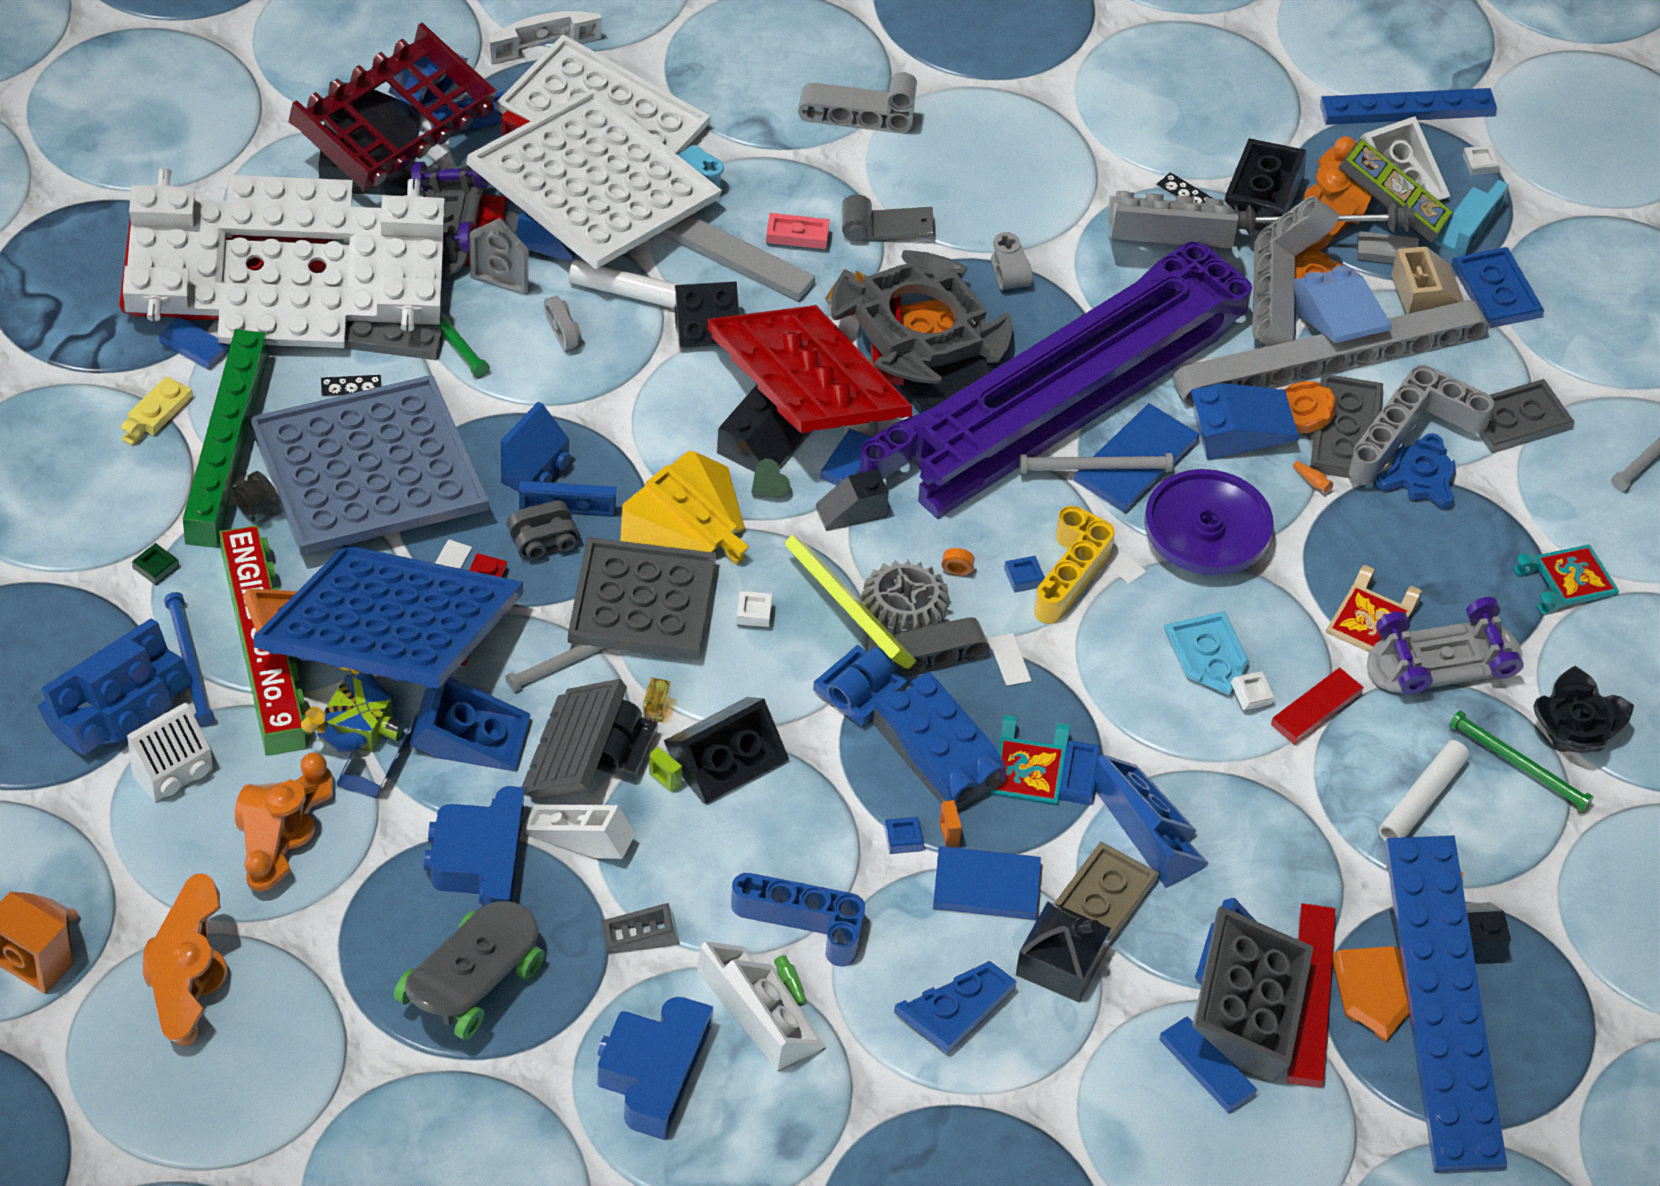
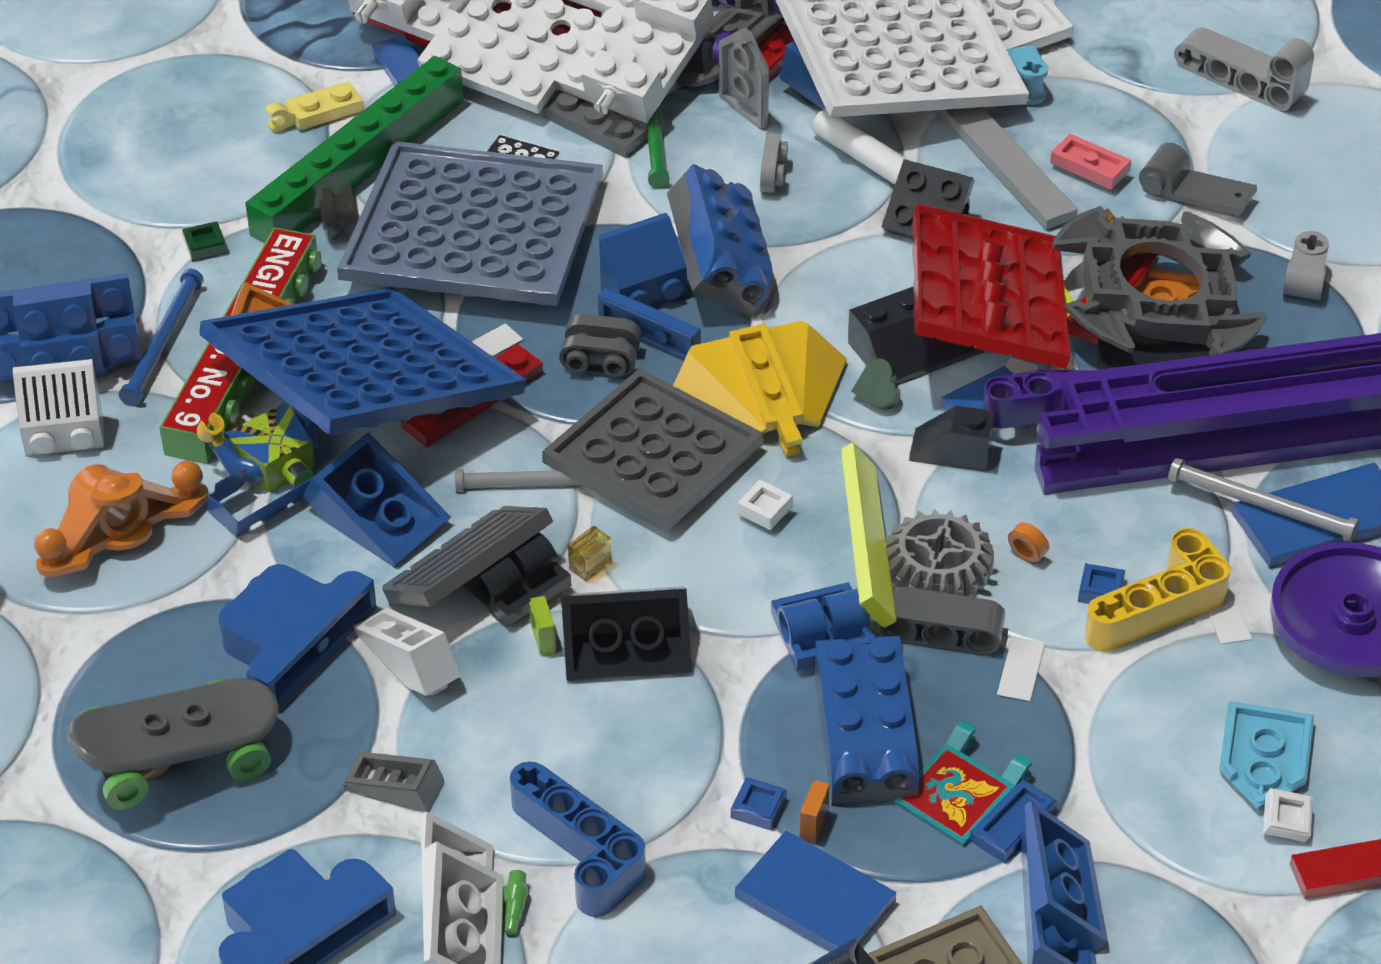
camera: 35 degrees right, 5 degrees down
(580, 405) = (721, 240): none -> blue piece

